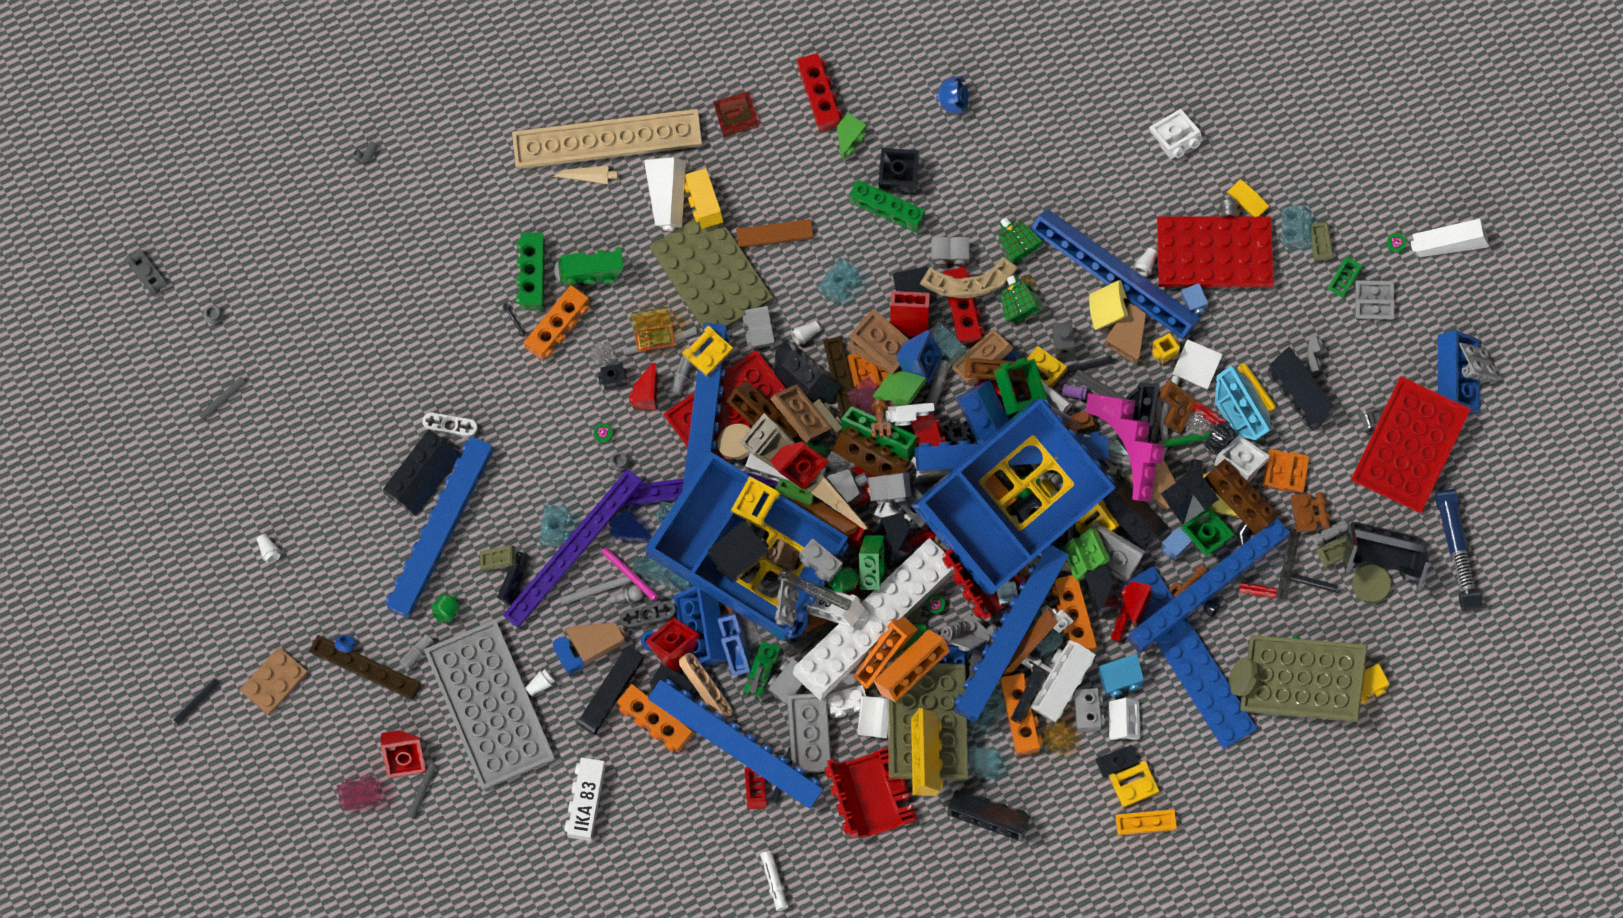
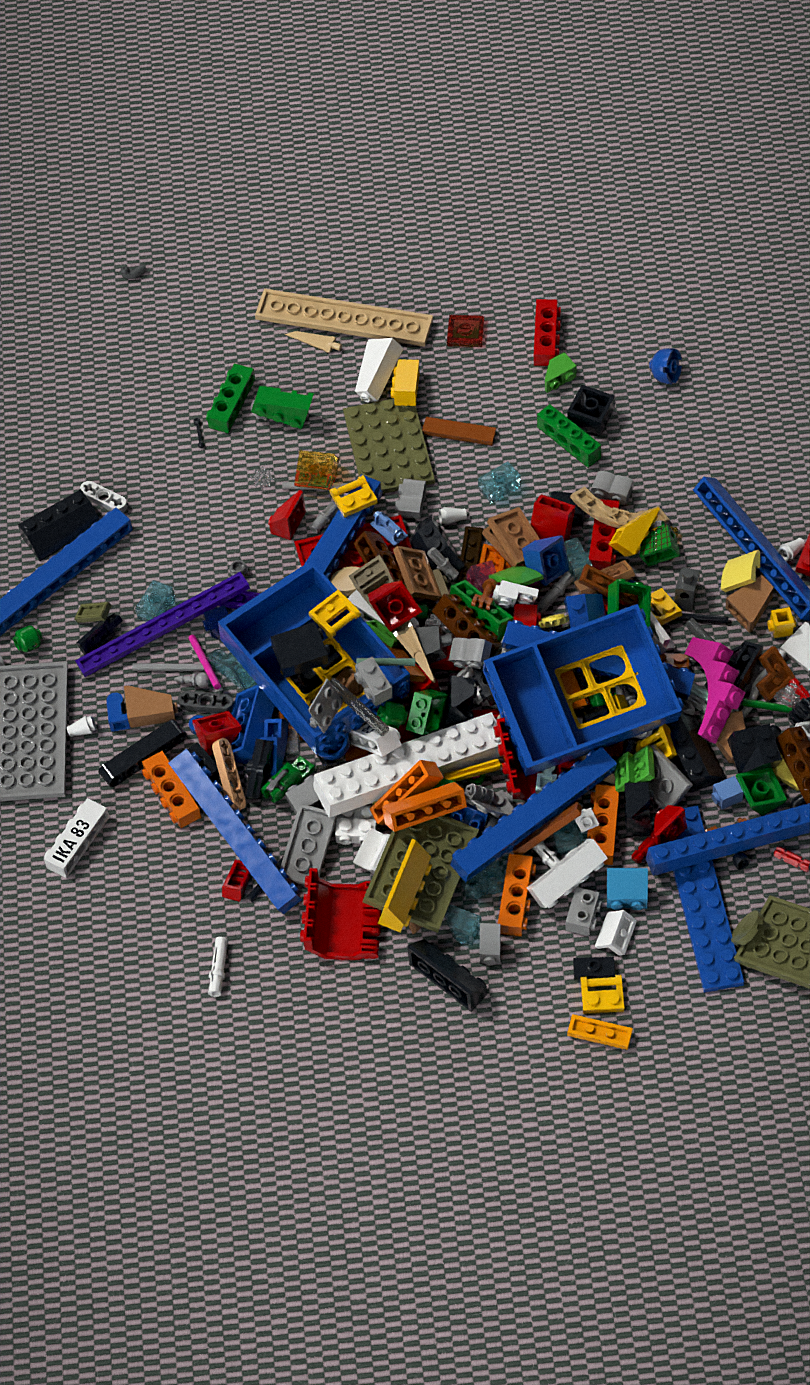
camera: 20 degrees right, 15 degrees down
(570, 298) = (233, 443): orange brick -> none
(603, 433) = (234, 543): green tile -> none
(617, 380) = (263, 499): black brick -> none
(732, 671) = (258, 768): none -> black piece
(751, 371) = (388, 528): none -> medium blue hinge
(822, 394) = (443, 563): none -> light grey axle
(822, 534) = (391, 661): none -> sand green bar
(933, 603) = (473, 771): none -> yellow axle
(955, 425) = (554, 620): none -> light yellow gear
(992, 300) = (629, 536): none -> yellow slope
(1017, 240) = (678, 497): green torso -> none
(1017, 774) = (490, 943): none -> light grey slope
(1032, 686) = (535, 869): black pin -> none
(1066, 737) = (537, 924): clear yellow gear -> none
(1075, 392) = (680, 635): medium lavender pin -> none

